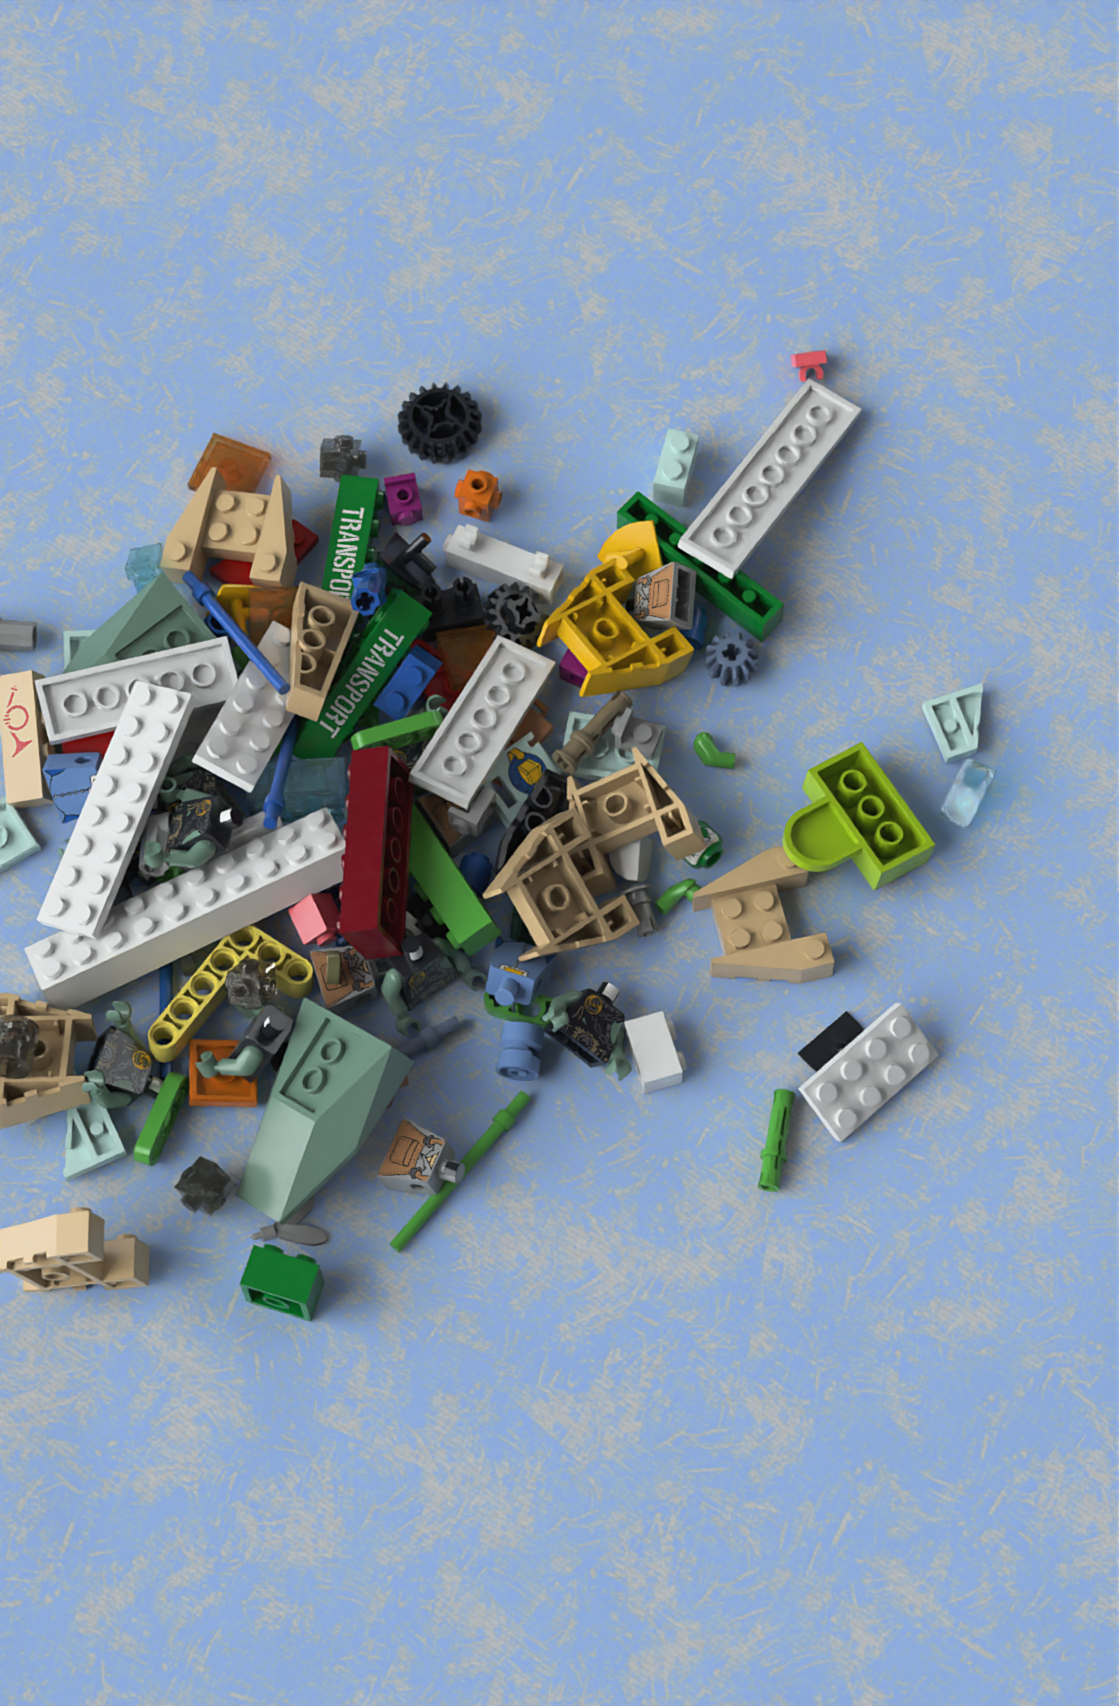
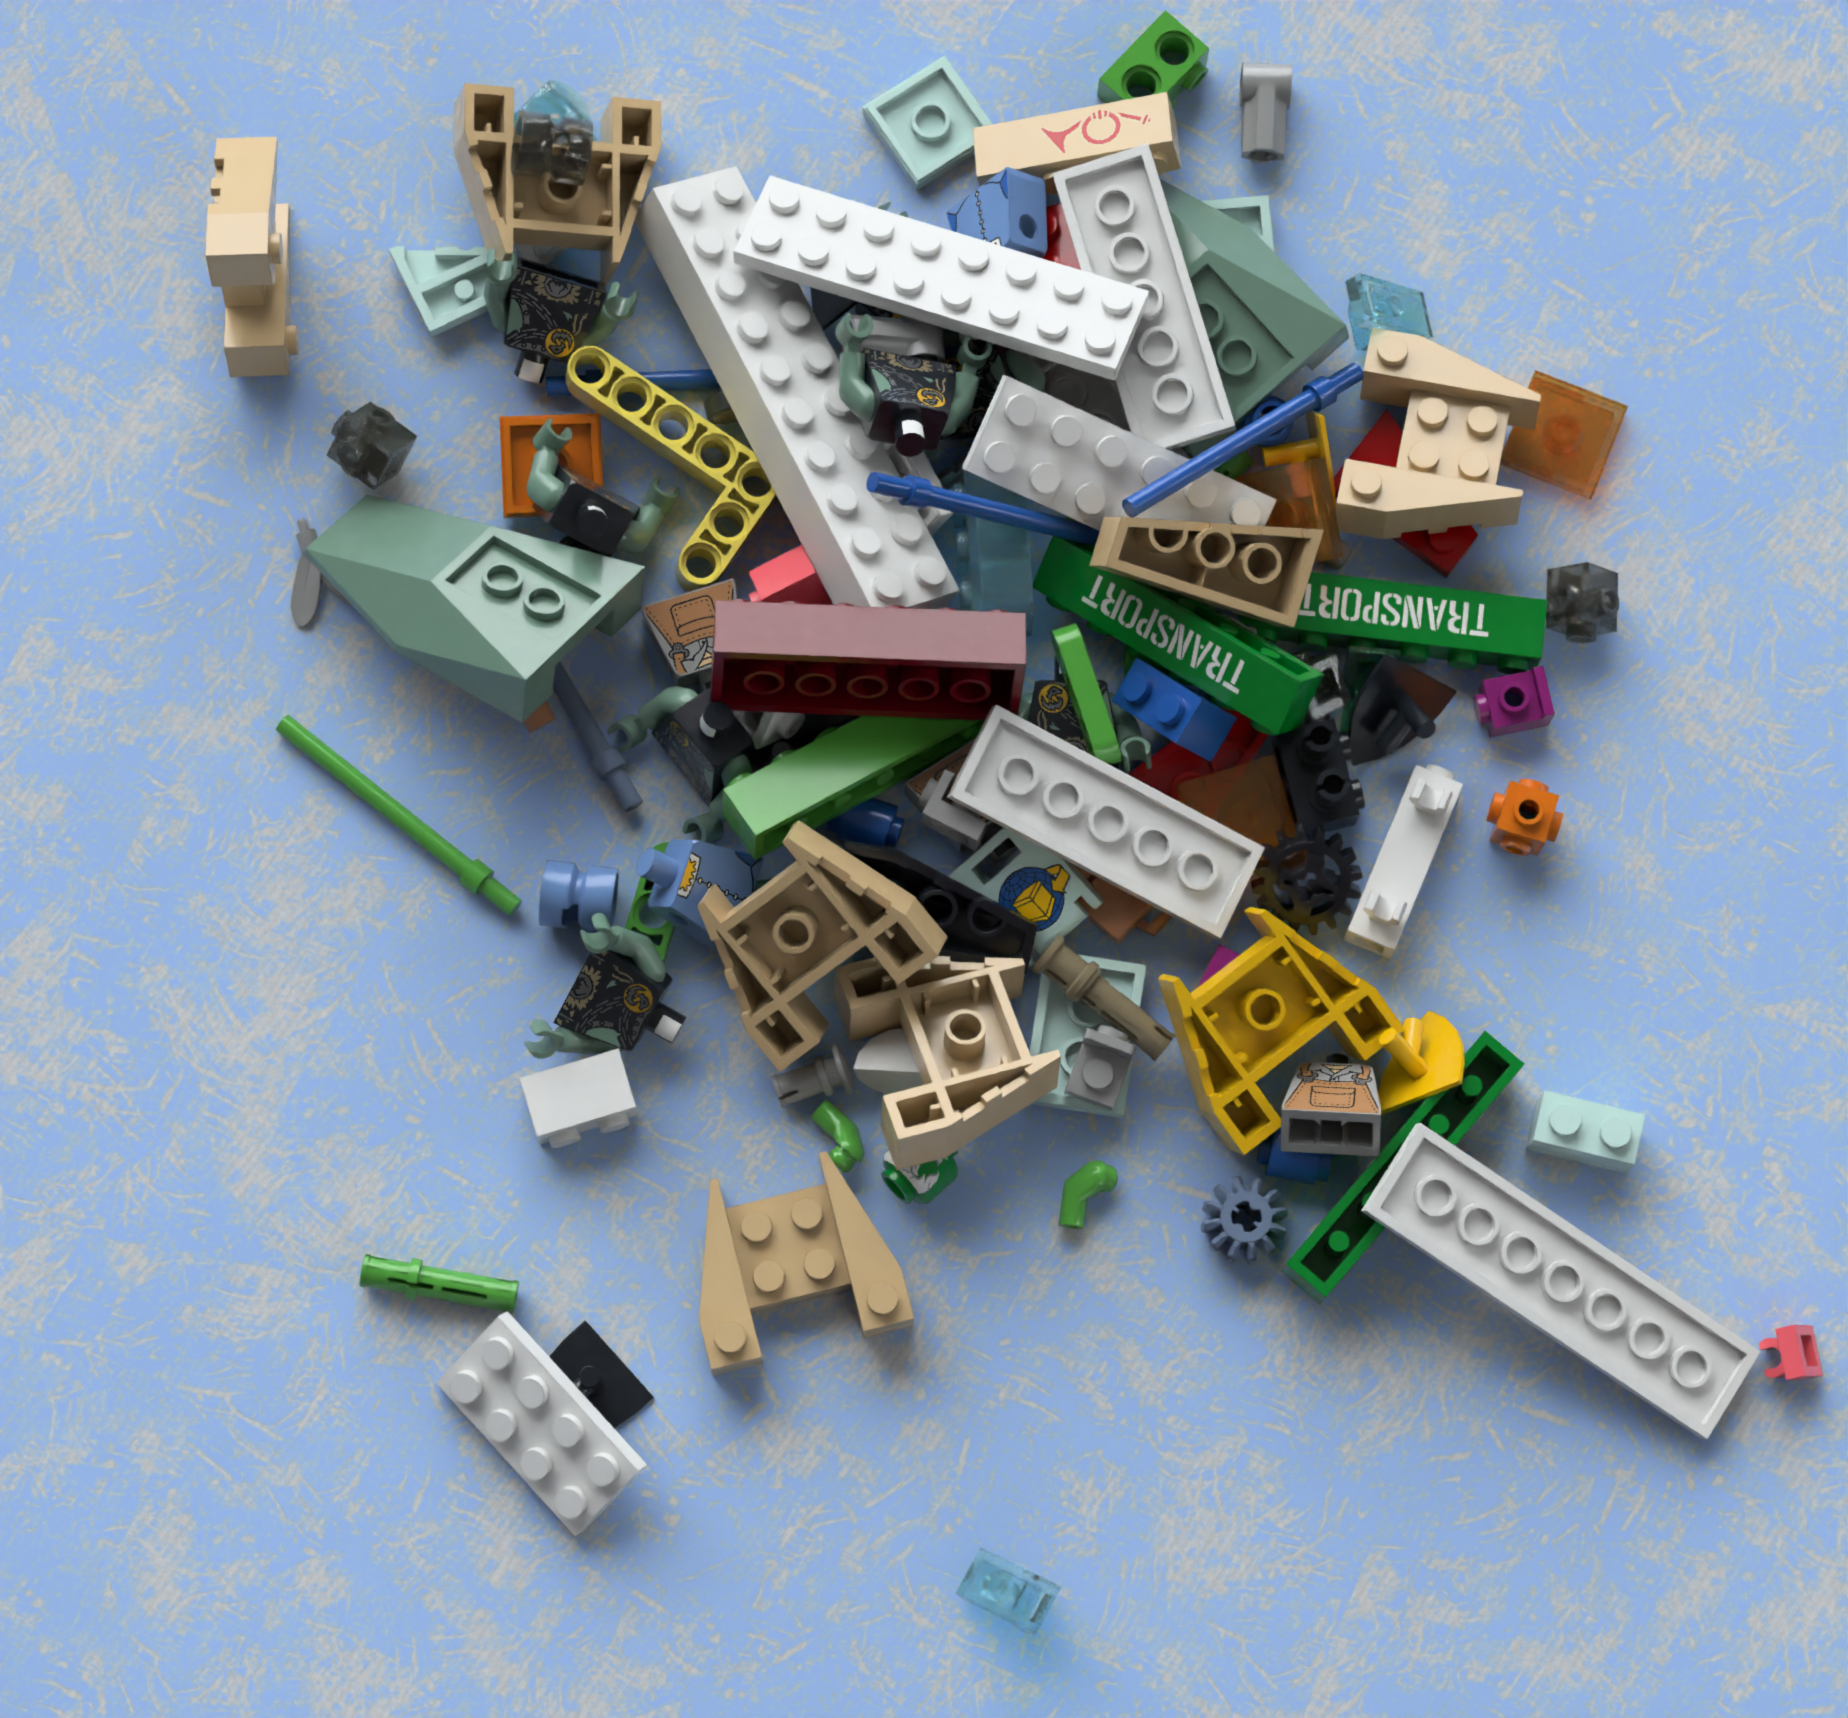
camera: 85 degrees right, 10 degrees up
(161, 1119) = (479, 380): bright green beam -> none
(251, 983) = (676, 493): clear smoke brick -> none
(282, 1281) = (217, 558): green brick -> none
(333, 967) = (694, 610): olive tile -> none
(369, 588) = (1308, 632): blue piece -> none
(419, 1161) = (407, 751): torso -> none
(444, 438) = (1674, 762): black gear -> none
(855, 818) = (953, 1408): lime brick -> none
(956, 721) = (1141, 1581): light aqua wing -> none

